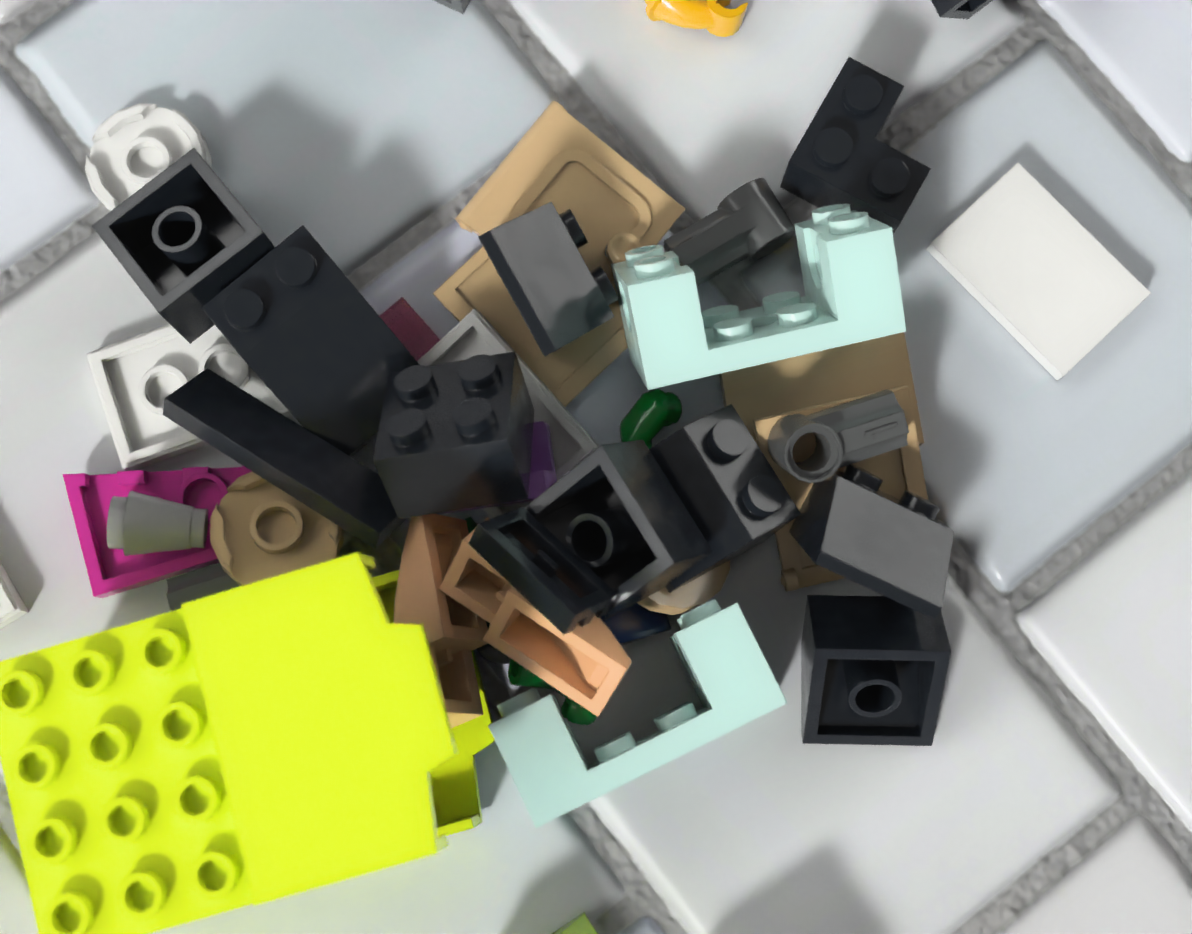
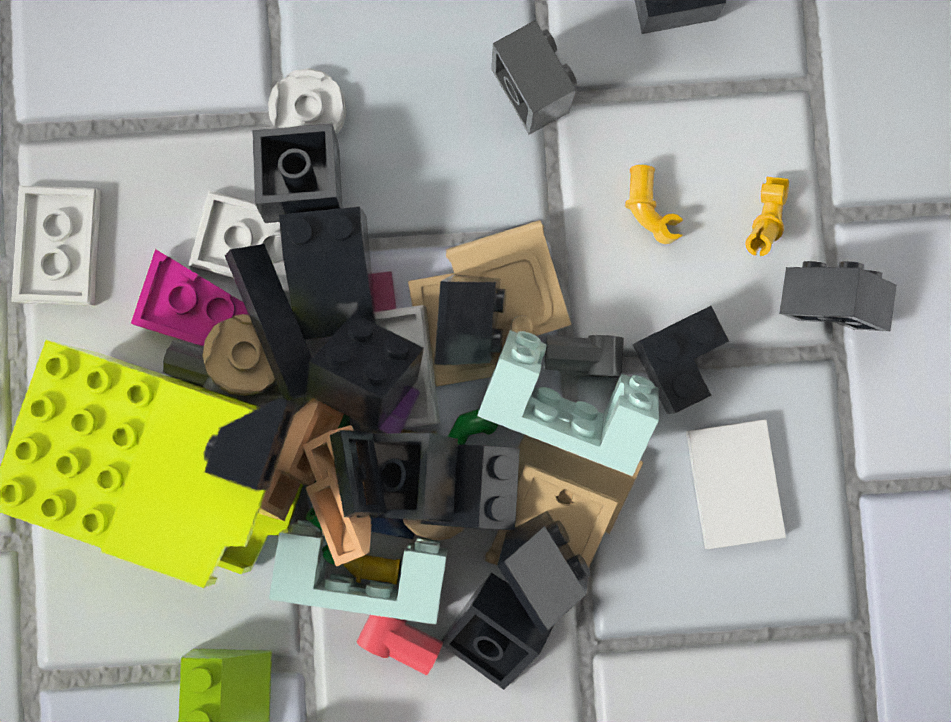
camera: 30 degrees right, 5 degrees up
(154, 525) = (183, 309): light grey cone -> none
(368, 599) = (250, 445): none -> black slope
(643, 701) = (374, 569): none -> yellow piece
(732, 776) = (400, 641): none -> coral piece
(842, 435) = (564, 506): dark grey piece -> none

